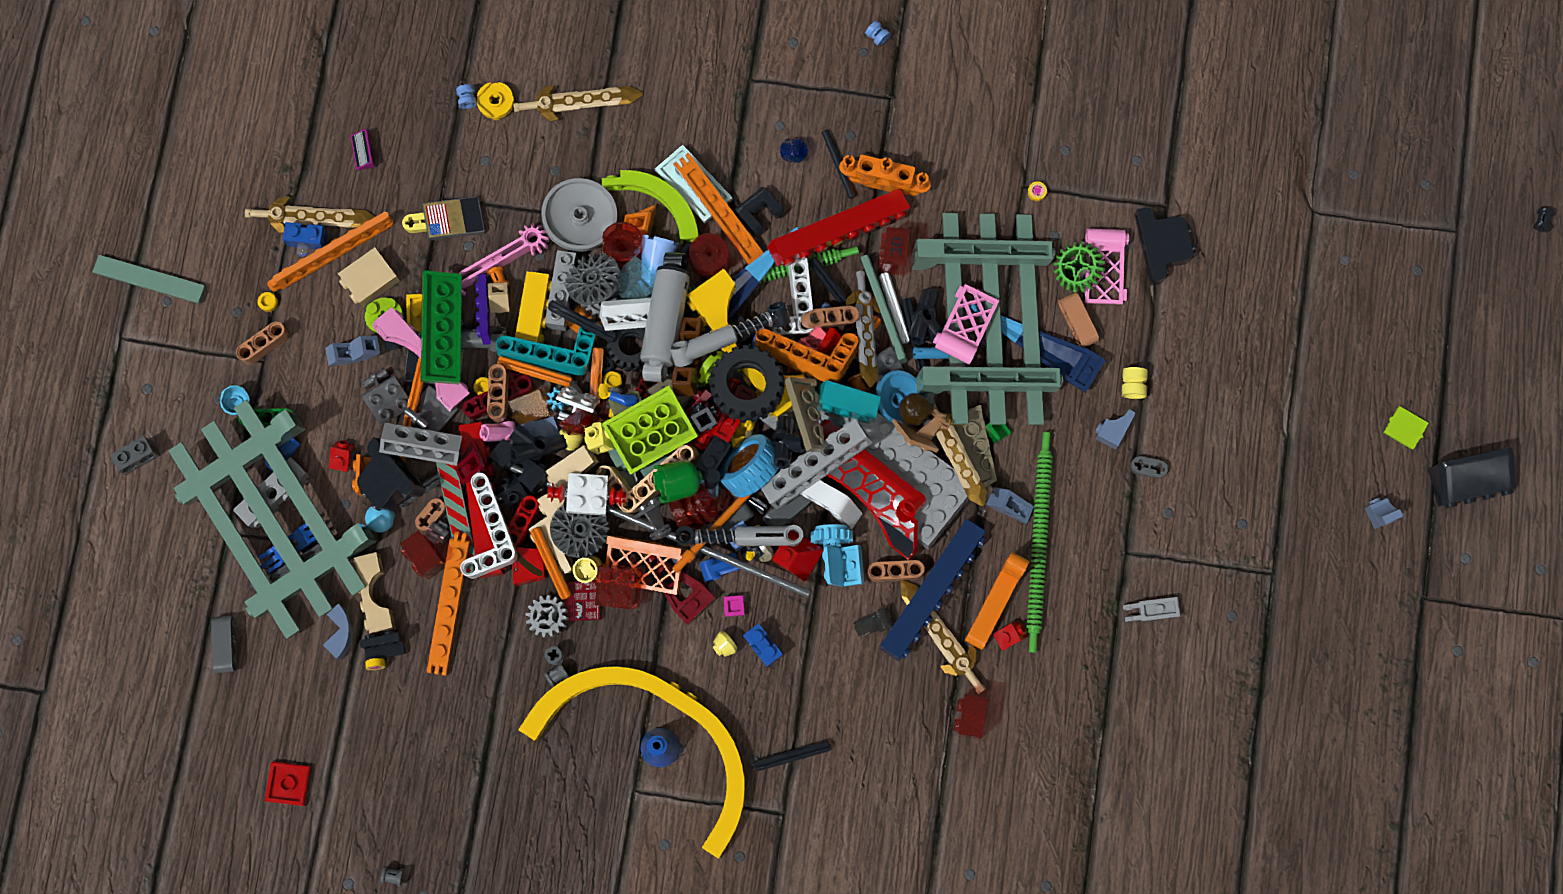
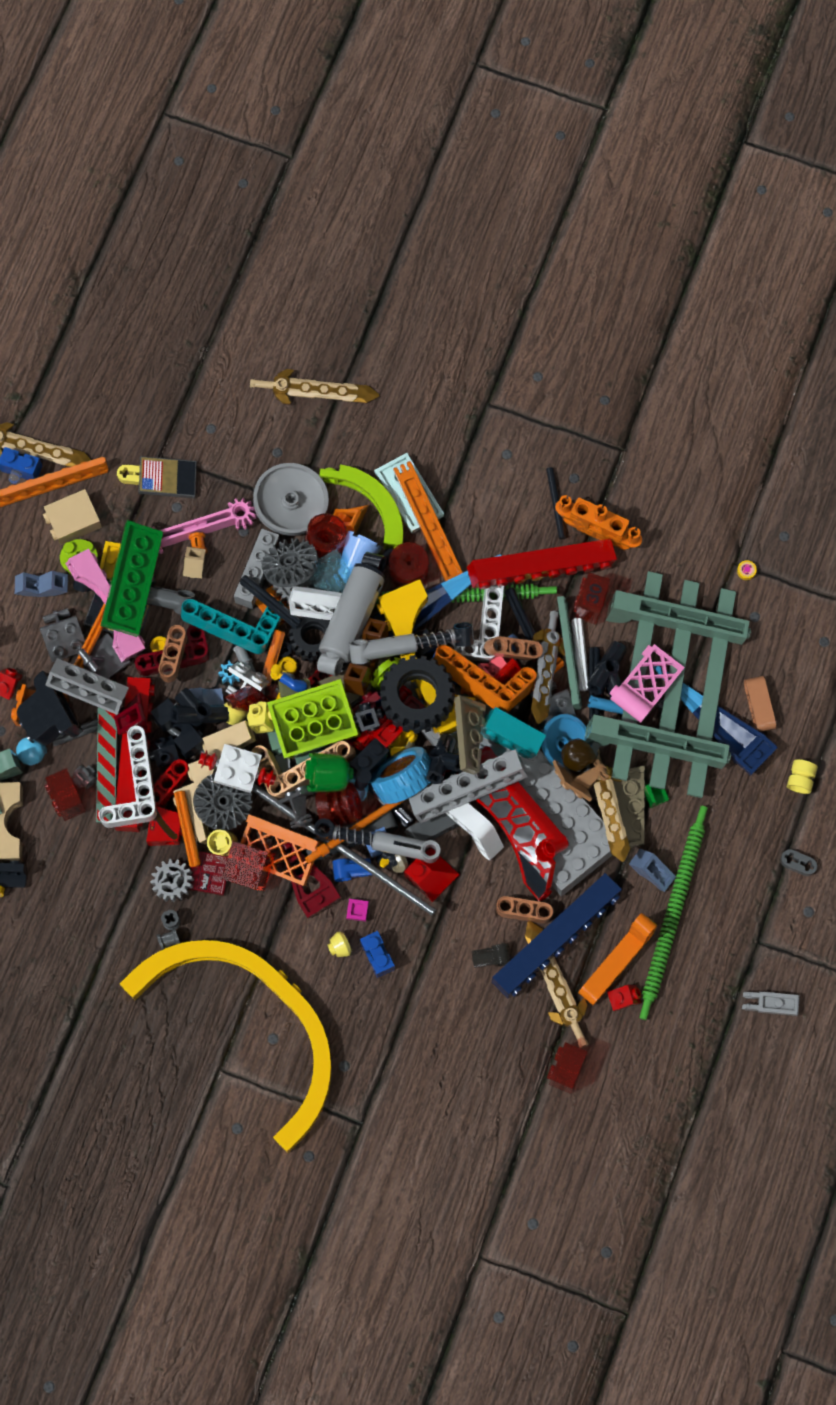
camera: 10 degrees right, 5 degrees down
(362, 150) = (94, 394): slope -> none
(426, 512) = (78, 754): nougat beam -> none
(448, 605) = (78, 849): orange hinge -> none
(466, 96) = (206, 363): medium blue wheel -> none
(483, 314) = (175, 576): dark purple plate -> none
(495, 90) = (237, 382): yellow plate -> none
(497, 432) = (163, 691): bright pink piece -> none
(529, 407) = (200, 674): clear orange piece -> none
(533, 307) = (226, 578): yellow brick -> none
(535, 371) = (213, 640): orange axle -> none
(666, 753) = (257, 1038): blue cone -> none
(755, 203) = (463, 525): black connector -> none
(791, 756) = (382, 1068): black axle -> none
(793, 150) = (514, 480): clear blue head -> none
(831, 535) = (468, 860): medium azure gear -> none
(843, 565) = (473, 893): medium azure bracket -> none
(857, 383) = (528, 718): orange bush -> none
(877, 33) = (622, 384): medium blue wheel -> none
(1079, 251) = (768, 666): bright green gear -> none
(1107, 241) = (808, 634): bright pink piece -> none
(1112, 431) = (770, 819): sand blue arch -> none

